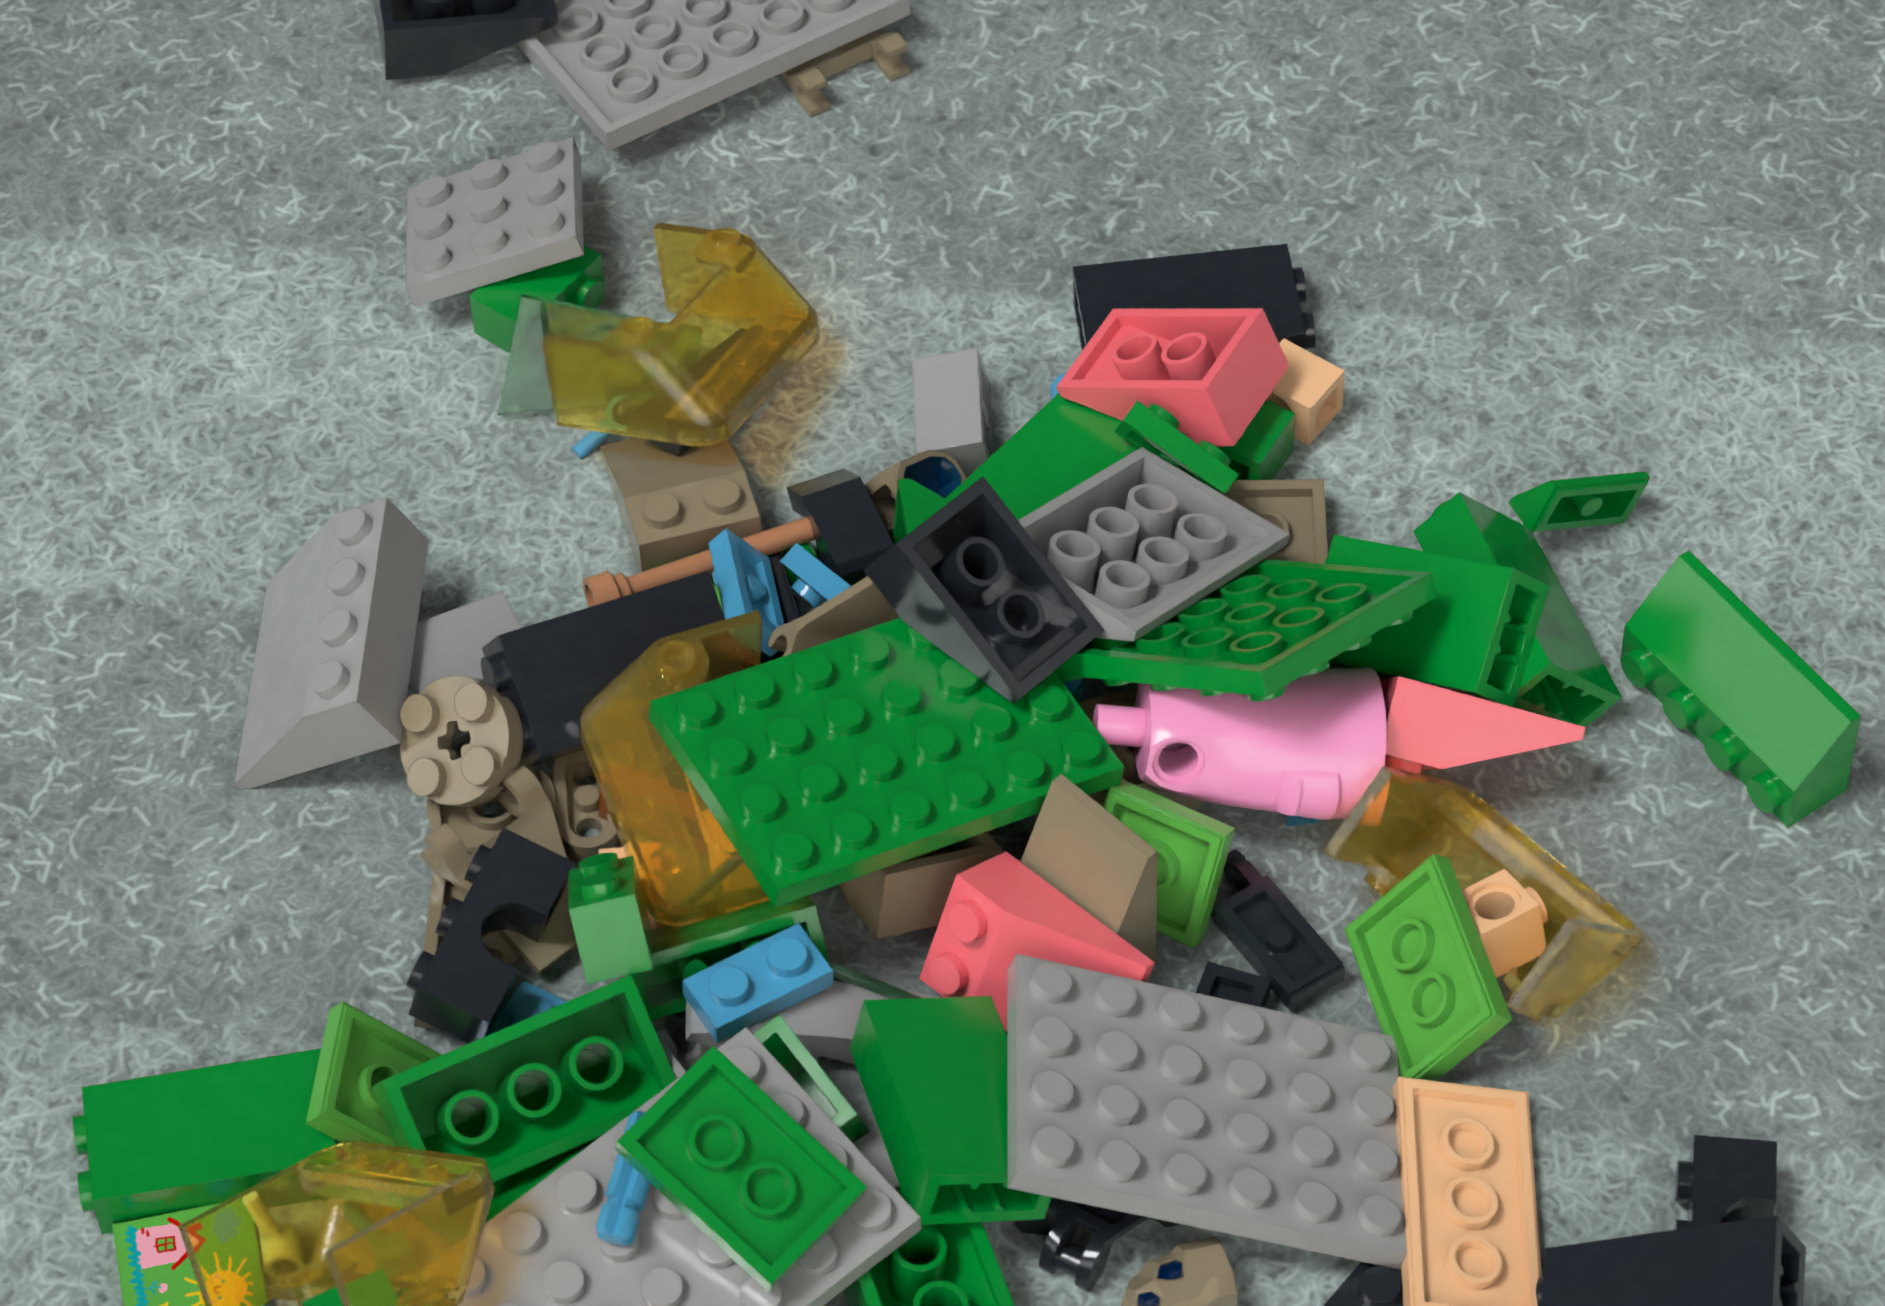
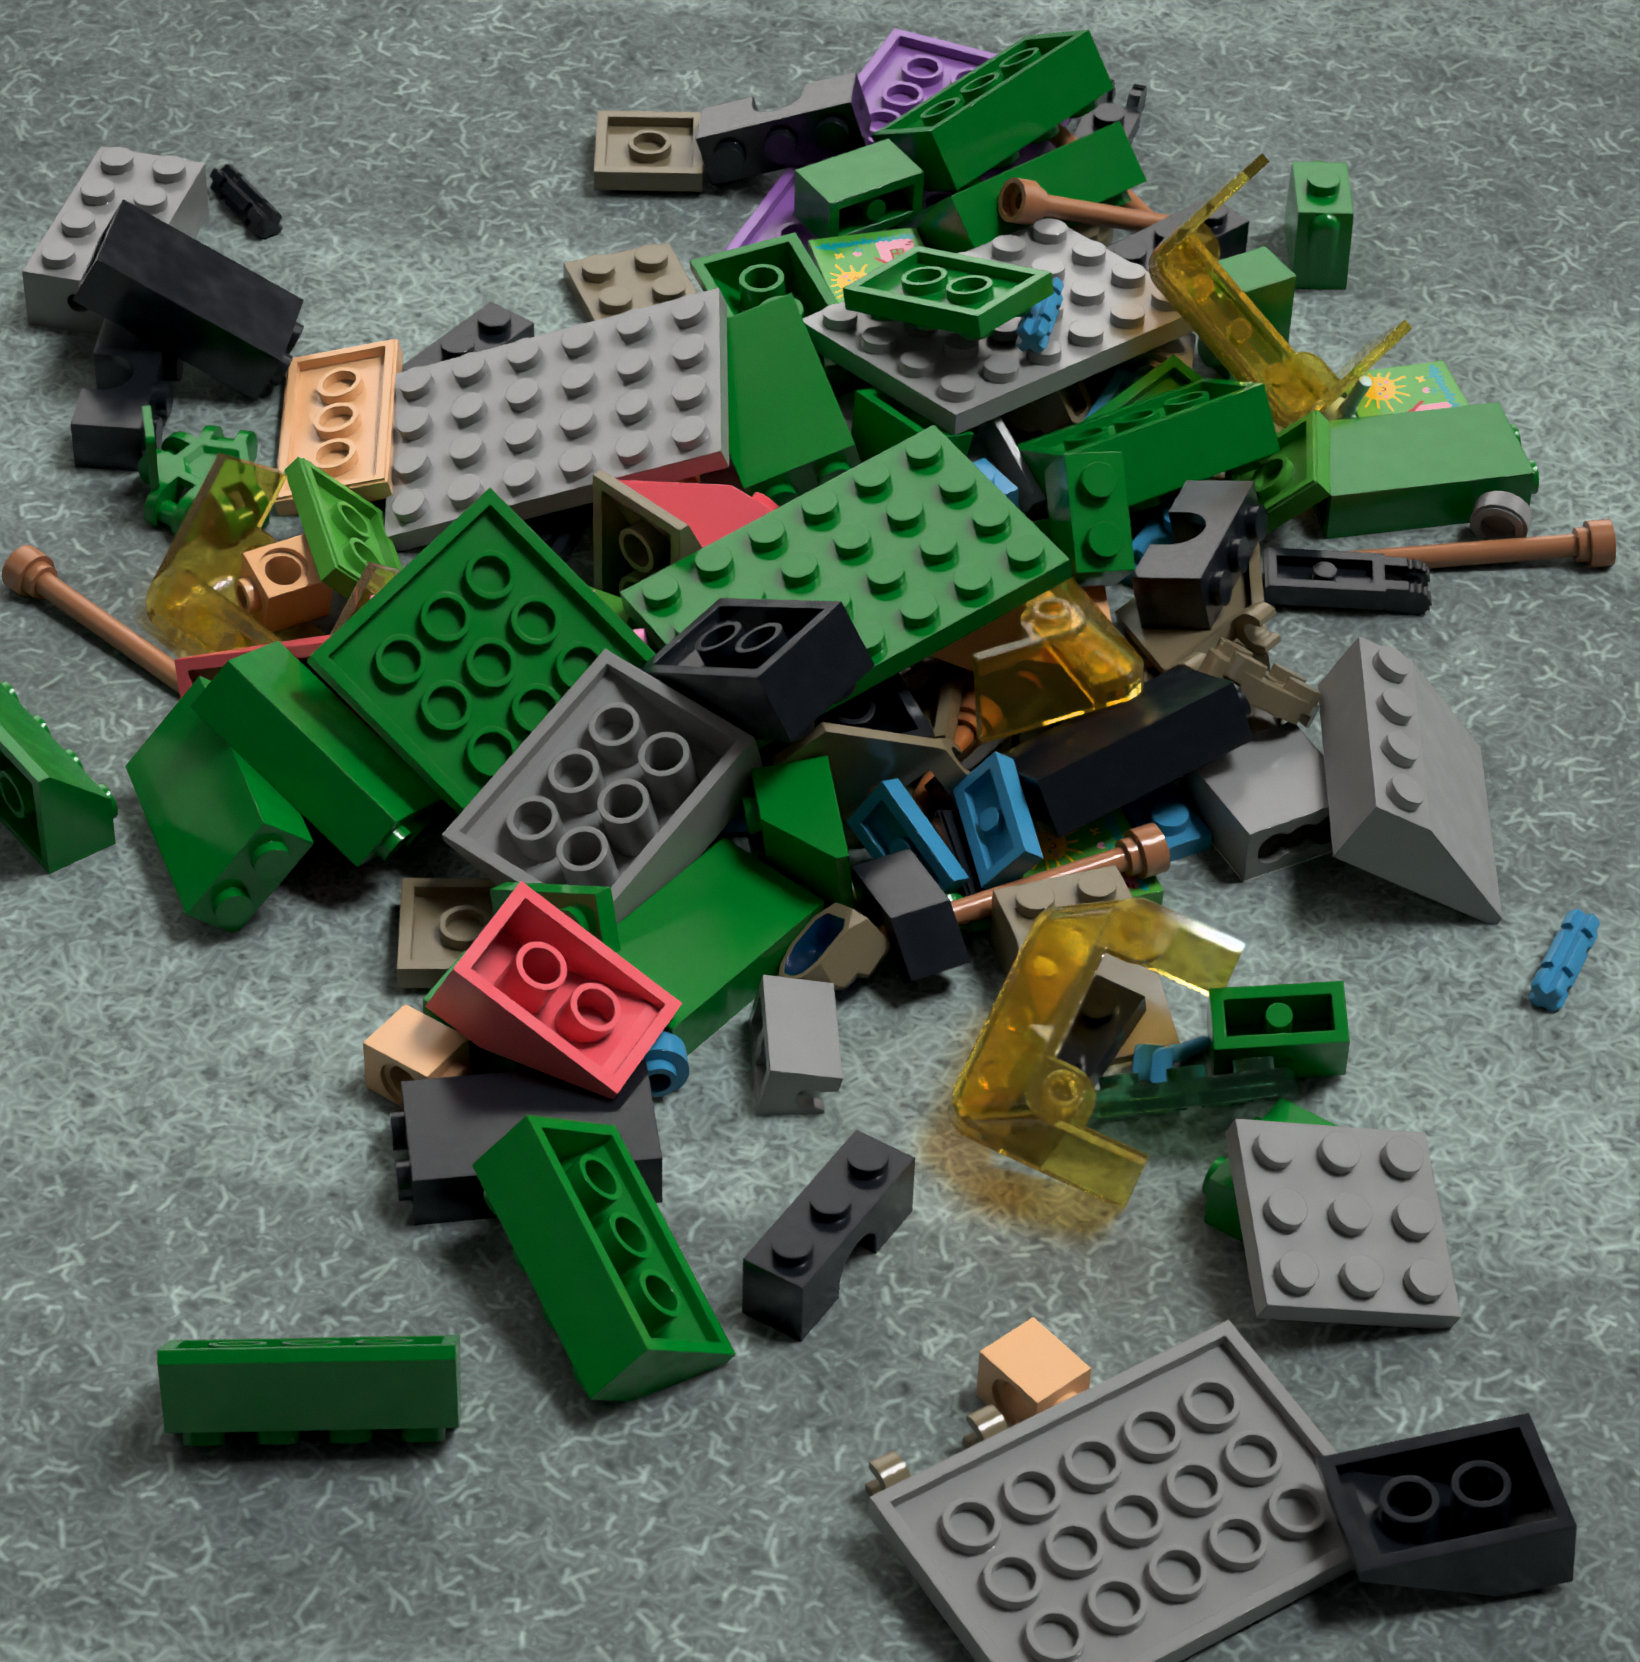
camera: 175 degrees right, 10 degrees down
(42, 1045) = (1590, 543): none -> nougat piece
(128, 1061) = (1500, 516): none -> light grey tile
(221, 531) = (1564, 960): none -> dark azure axle
(321, 980) = (1346, 580): none -> black hinge
(505, 410) = (1292, 1022): none -> green brick
(769, 120) = (1029, 1372): none -> light nougat brick
(904, 254) = (799, 1261): none -> black arch
(1120, 178) = (600, 1258): none -> green slope
(1351, 65) = (310, 1385): none -> green slope
(1579, 501) = (129, 933): green slope -> none
(1609, 1107) = (184, 463): none -> green piece
(1776, 976) = (34, 575): none -> nougat piece

